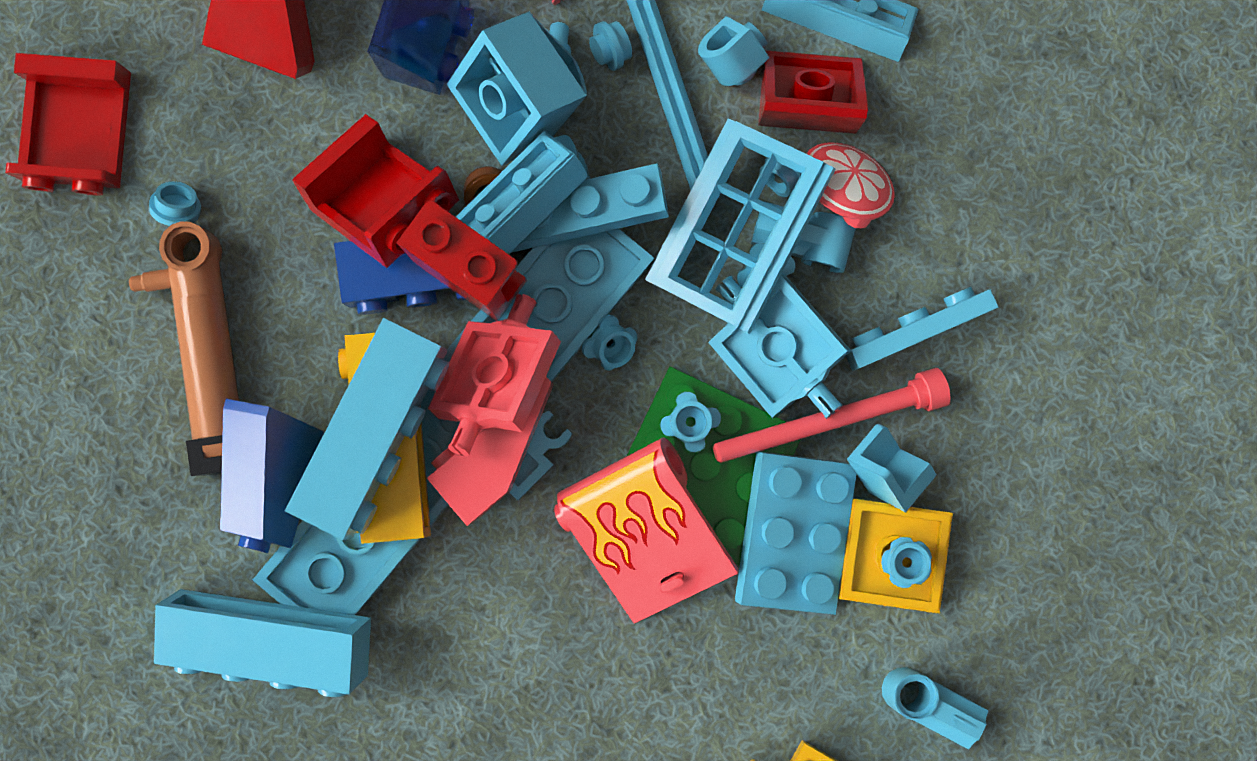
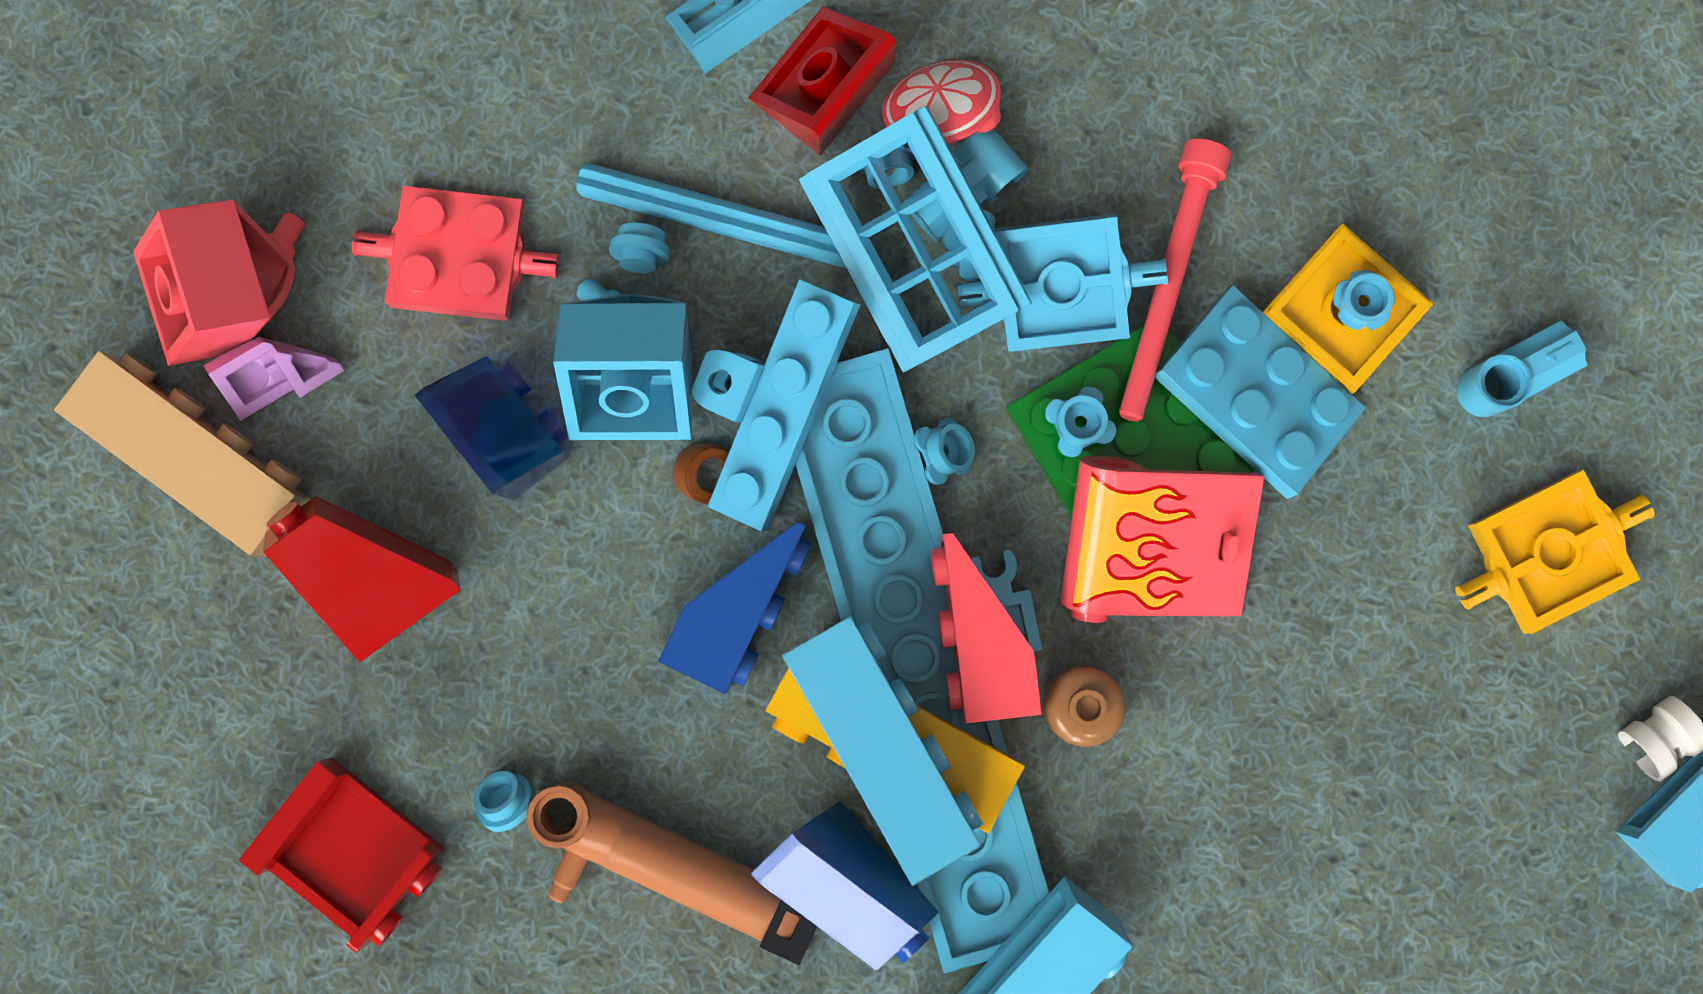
camera: 55 degrees left, 0 degrees up
(371, 189) = (635, 584): red panel -> none
(462, 259) = (774, 537): red panel -> none
(494, 375) = (908, 584): coral plate -> none
(496, 554) = (1083, 706): none -> medium nougat head
(524, 193) = (745, 453): medium azure slope -> none
(733, 51) = (731, 128): medium azure plate -> none
(890, 471) = (1260, 256): medium azure panel -> none
(920, 326) = (1135, 130): medium azure plate -> none

